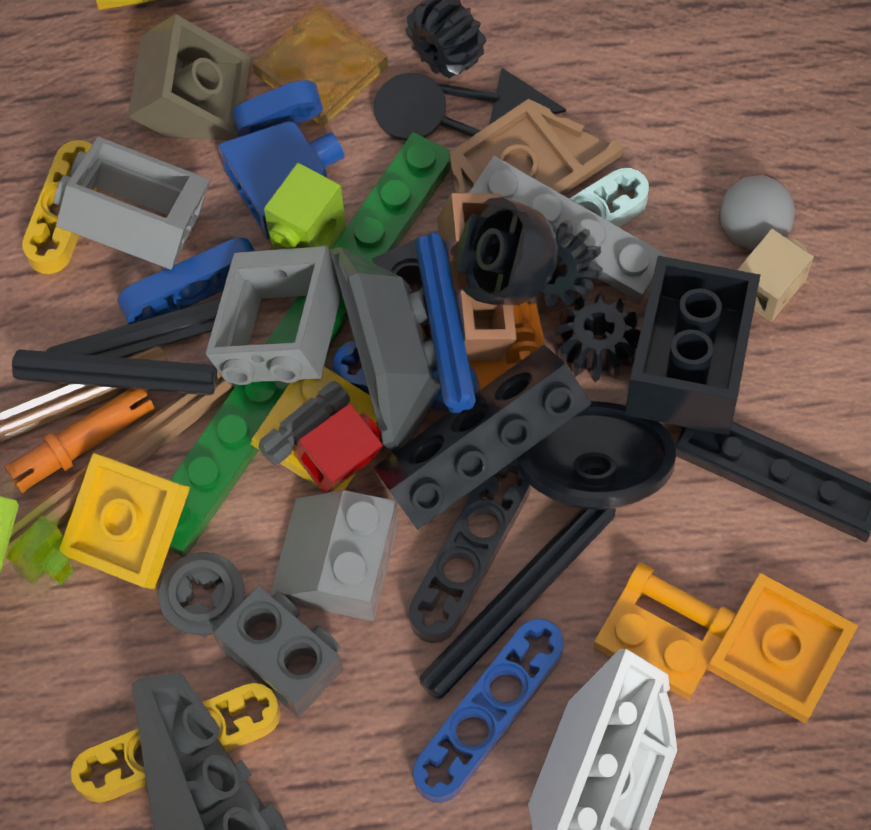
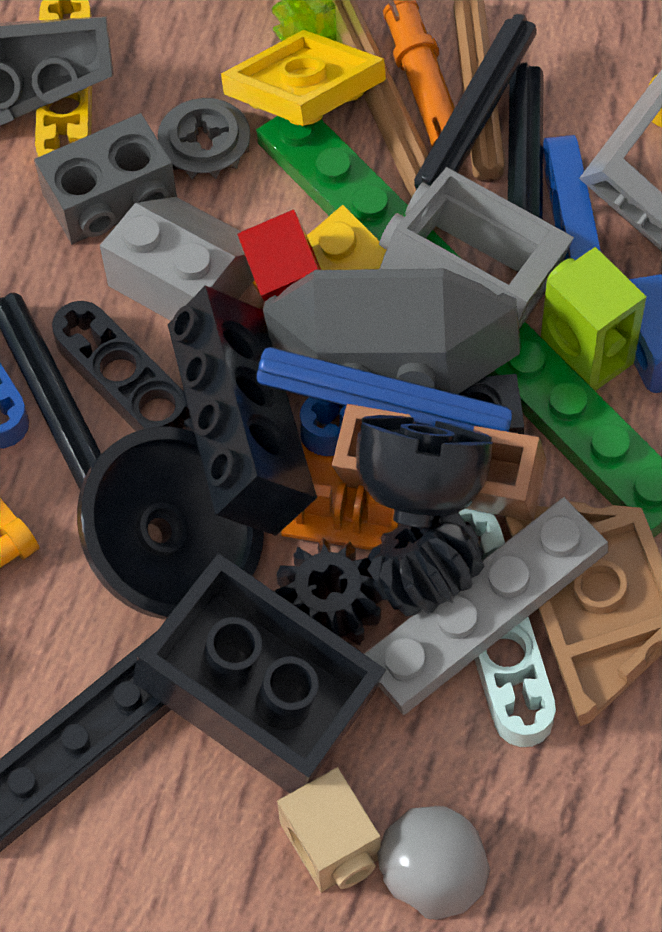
camera: 110 degrees right, 5 degrees down
(279, 443) = (325, 232): dark grey axle -> none

